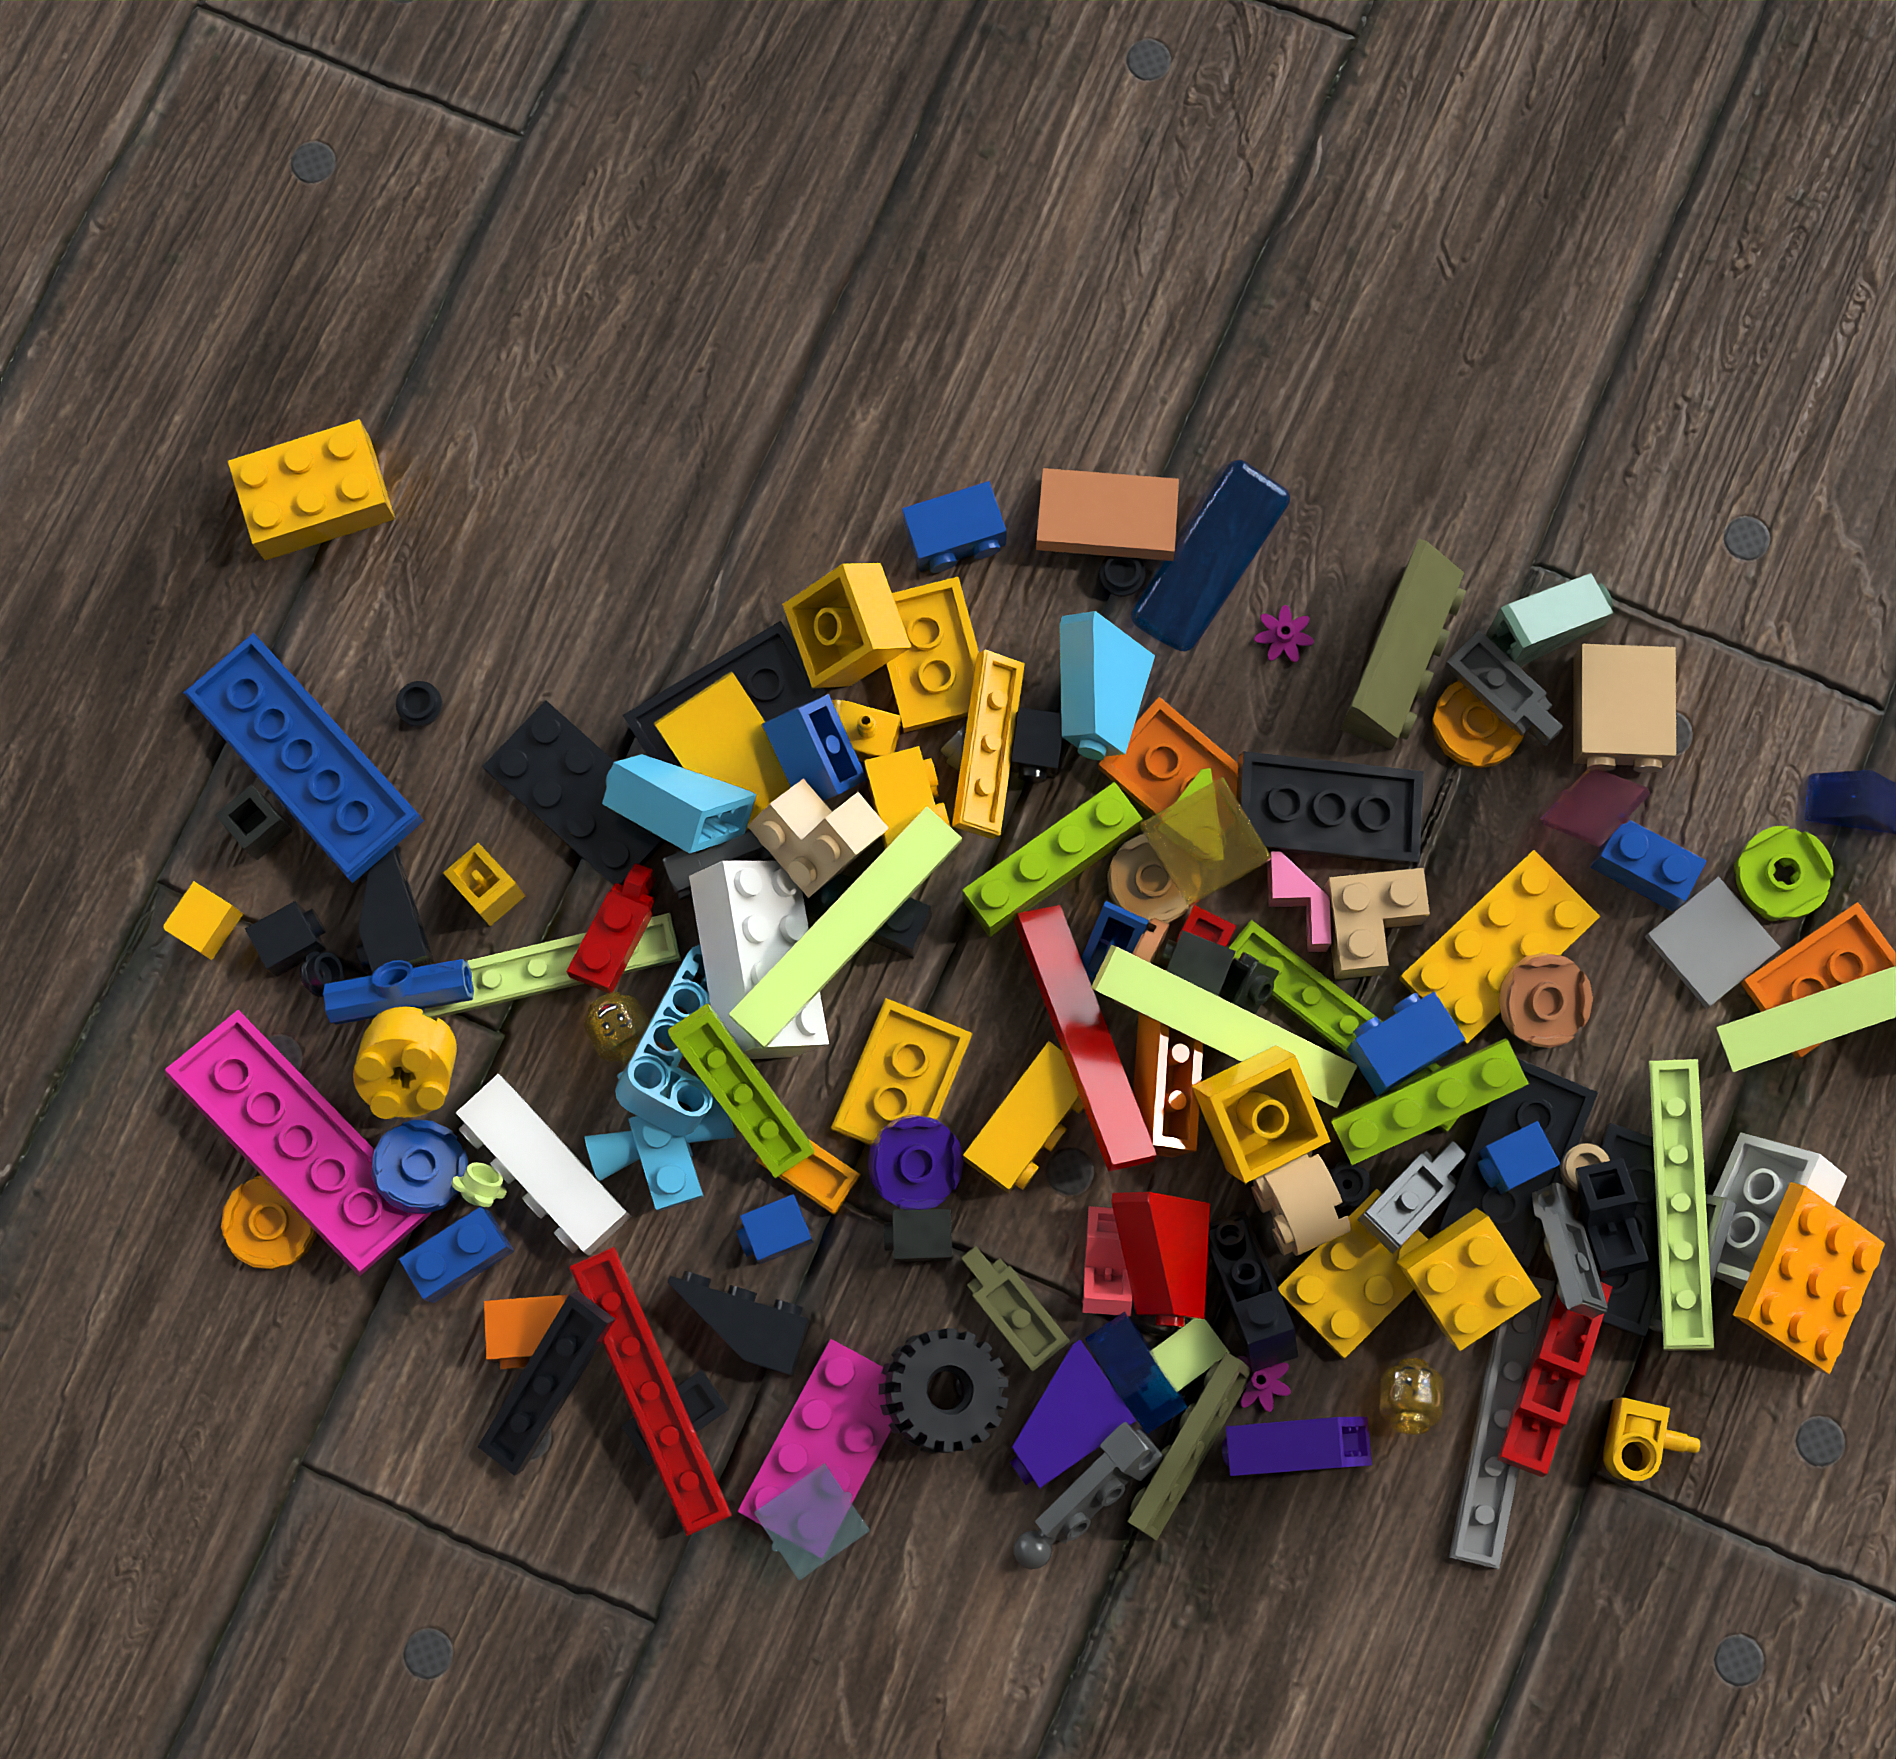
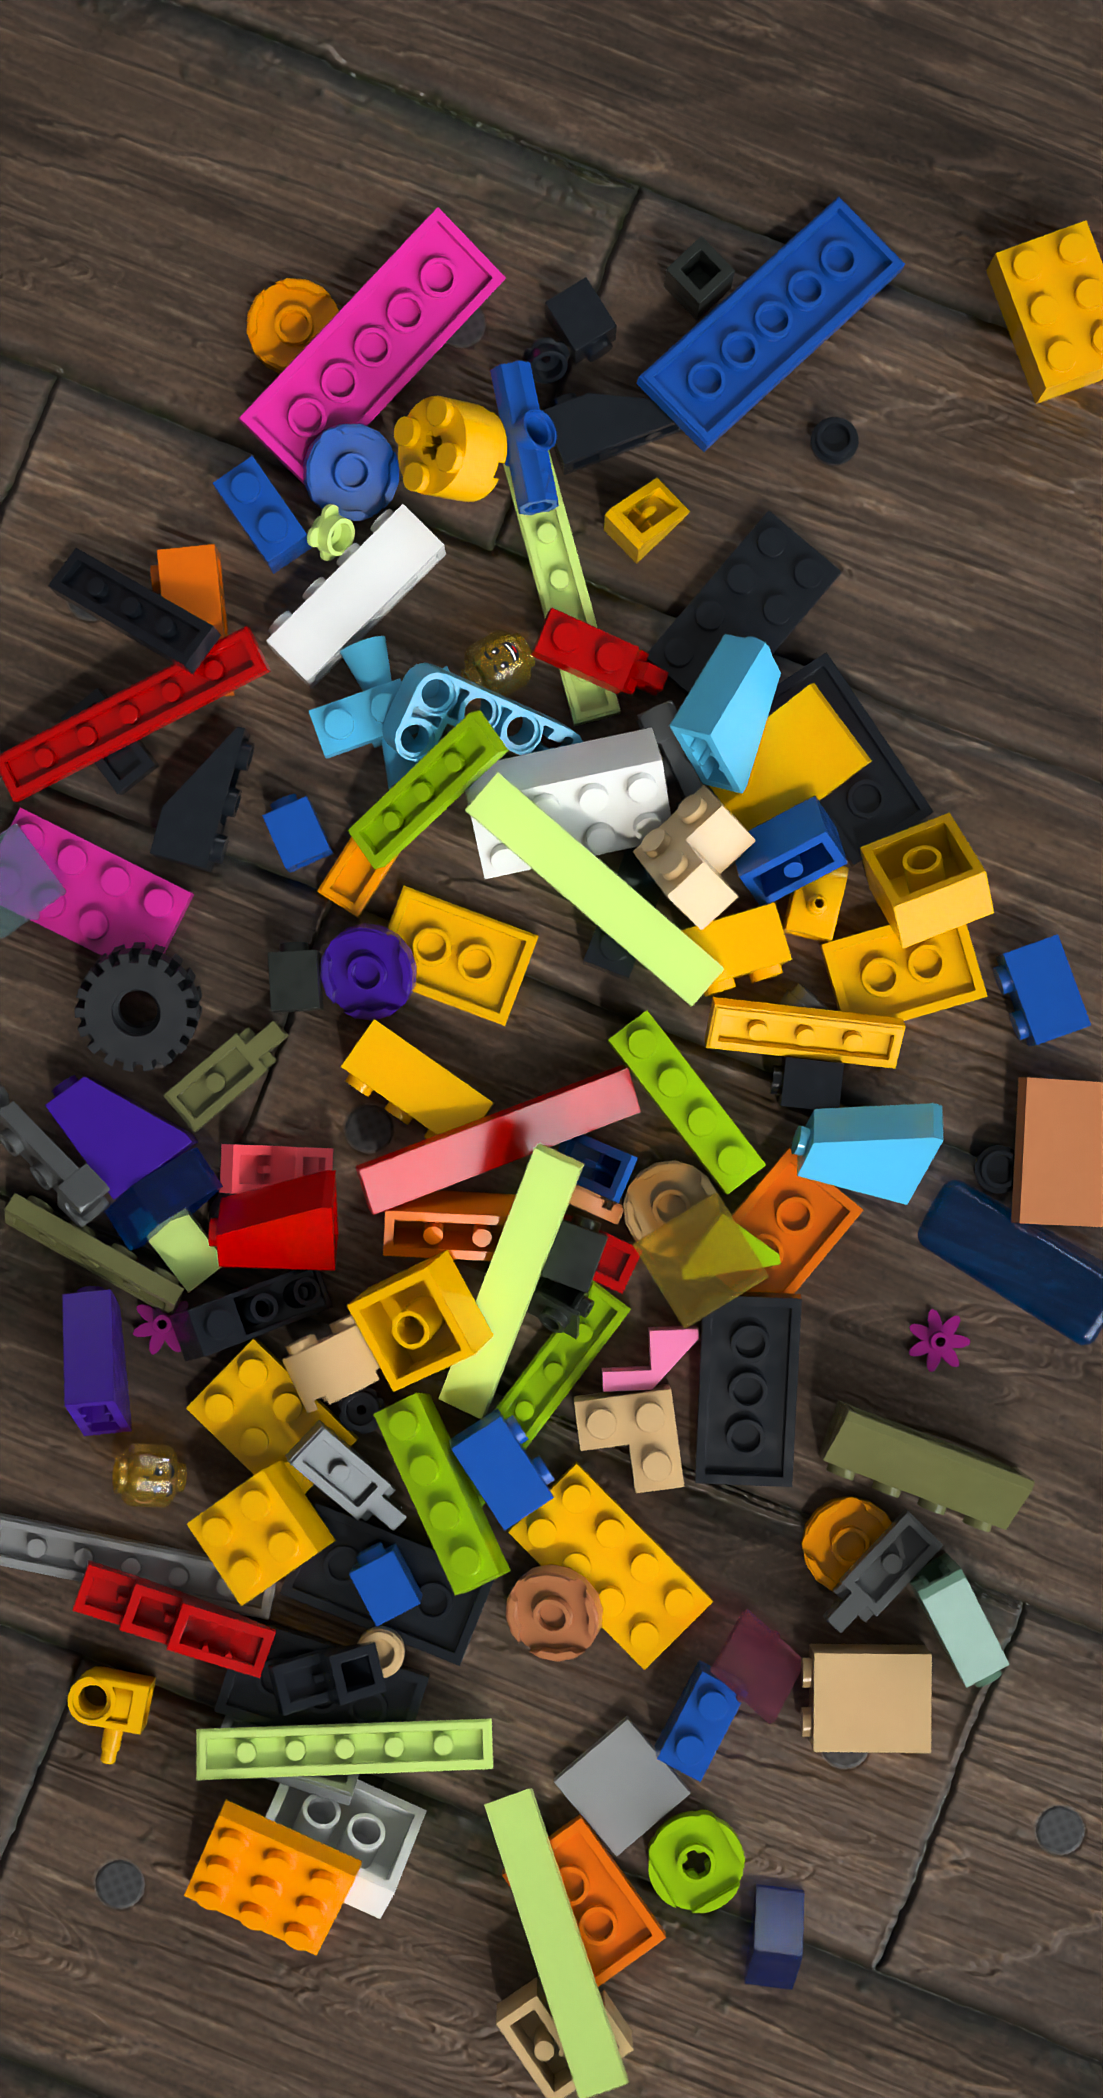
camera: 85 degrees right, 10 degrees up
(202, 920) = (596, 234): yellow panel -> none
(1570, 1251) = (291, 1635): dark grey hinge -> none

